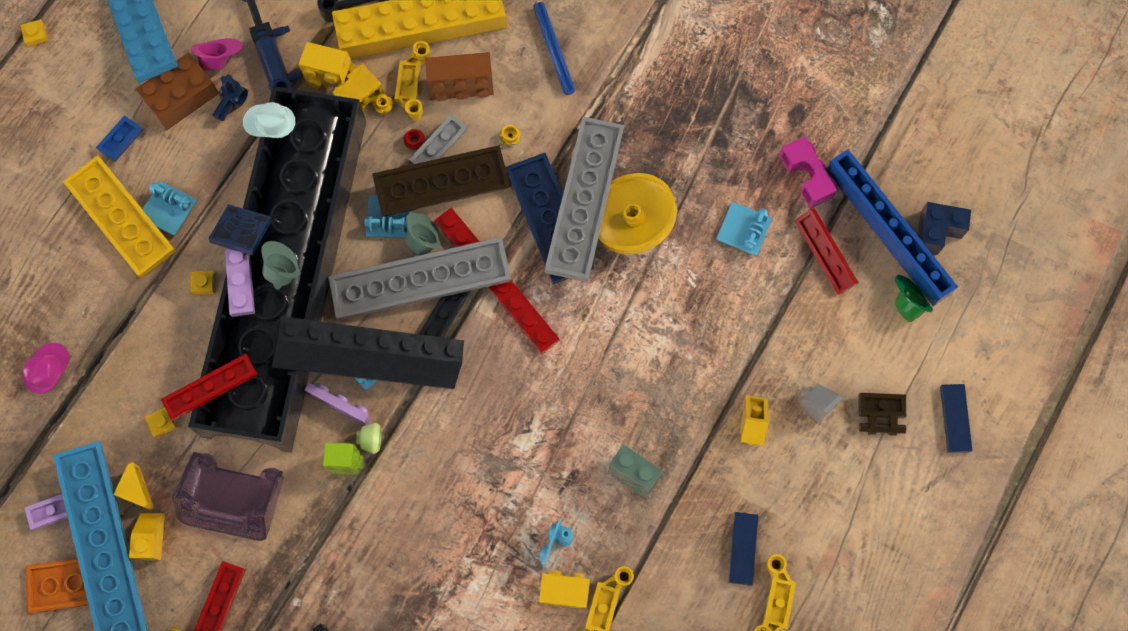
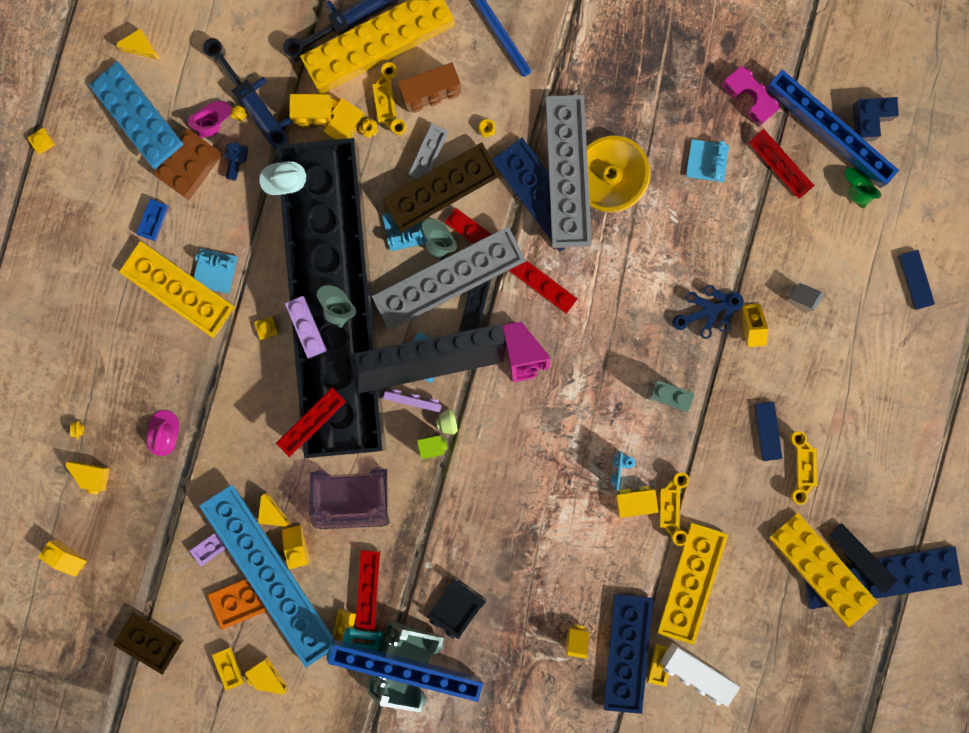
camera: 15 degrees left, 15 degrees up
(160, 423) = (272, 453): yellow plate -> none
(240, 229) = (292, 284): tile -> none
(249, 55) = (238, 113): none -> yellow plate
(414, 133) = (405, 147): red plate -> none
(480, 382) = (524, 352): none -> dark pink slope
(708, 391) = (711, 310): none -> dark blue plant
(882, 406) = (853, 286): dark brown plate -> none

